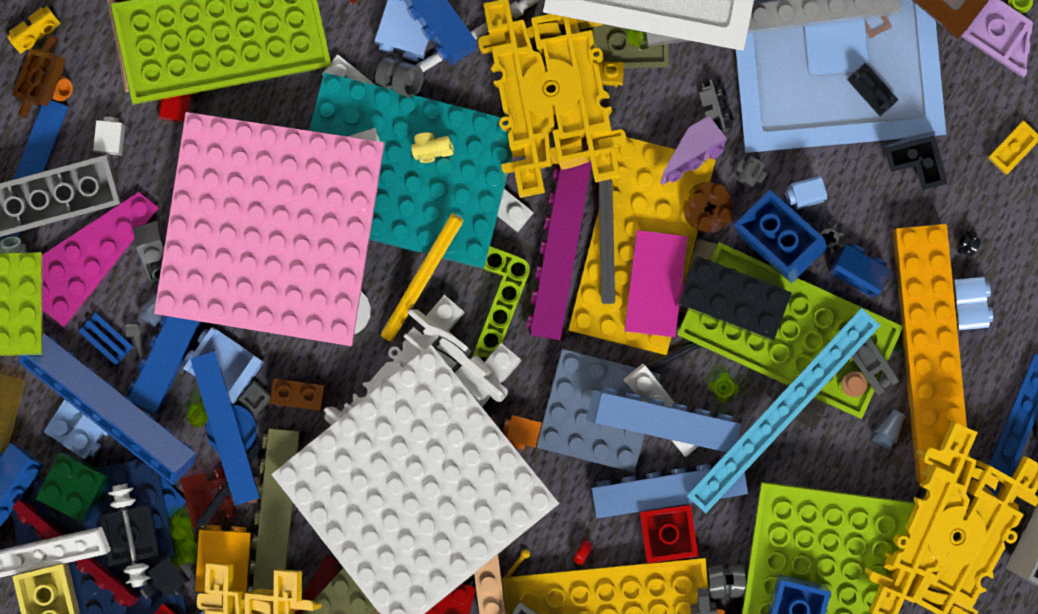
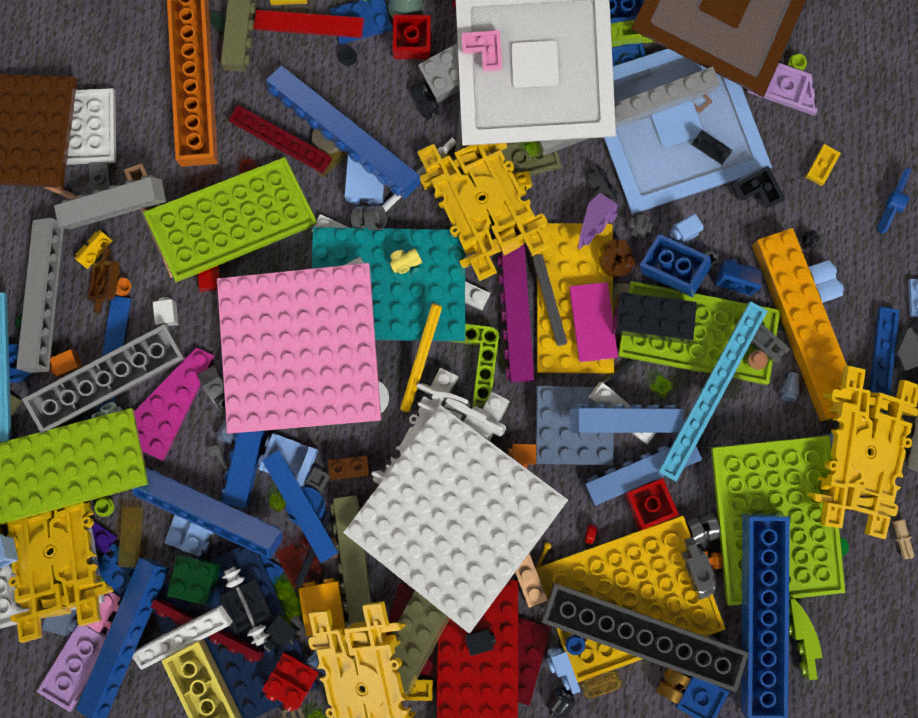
camera: 15 degrees left, 5 degrees down
(90, 324) = (182, 454): blue tile -> none

